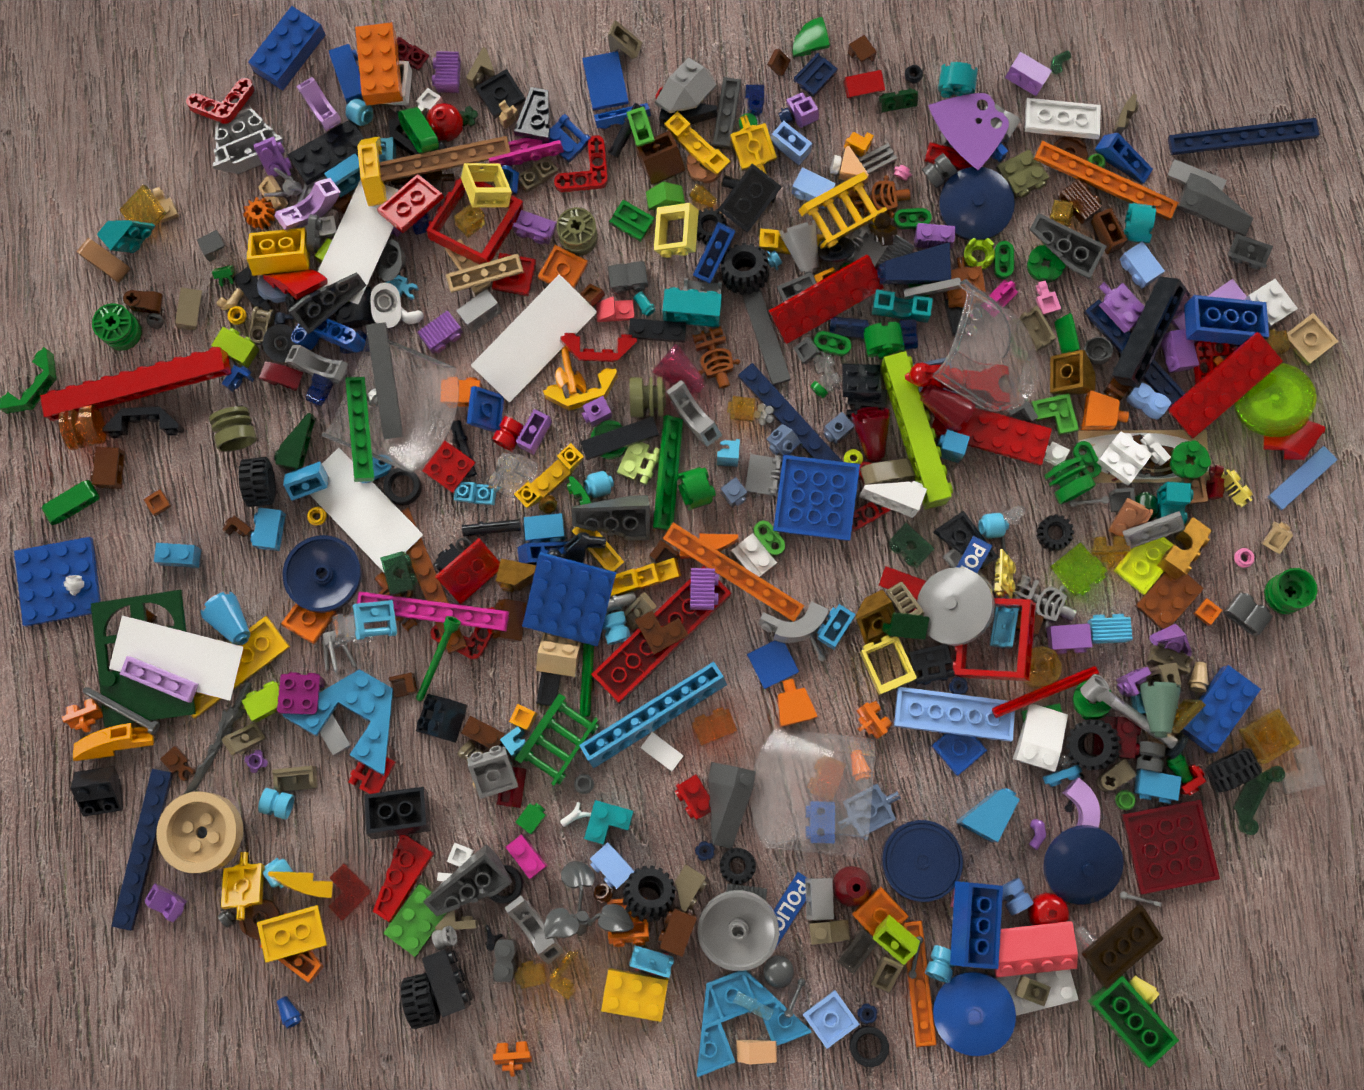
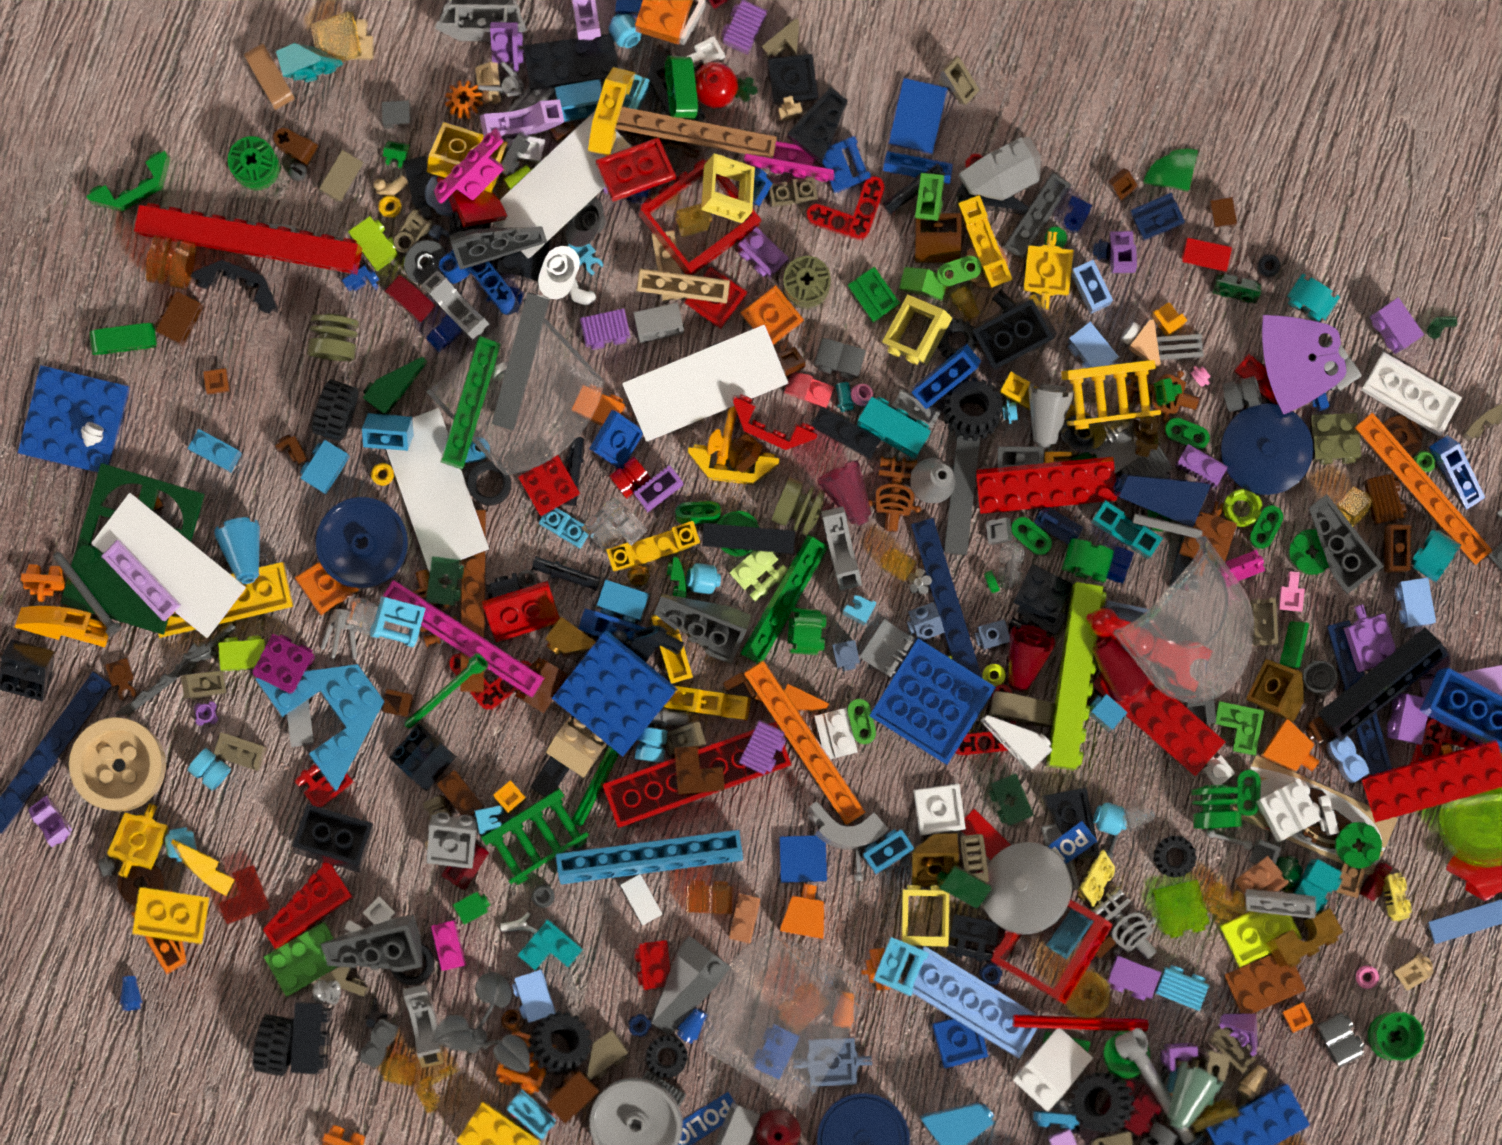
camera: 20 degrees right, 5 degrees up
(287, 253) = (474, 171): none -> dark pink bracket
(573, 435) = (698, 512): none -> green plate
(589, 373) = (748, 451): none -> reddish brown bracket
(596, 411) = (736, 496): medium lavender brick -> none
(656, 296) = (865, 391): none -> bright pink plate
(688, 173) = (959, 271): none -> bright green plate
(740, 332) = (932, 480): none -> light grey cone
(746, 832) = (691, 1026): none -> blue cone
(749, 729) = (744, 918): none -> nougat brick
(859, 577) = (939, 809): none -> white plate
(881, 710) = (894, 962): none -> medium azure plate
(882, 192) = (1166, 391): none -> green tile

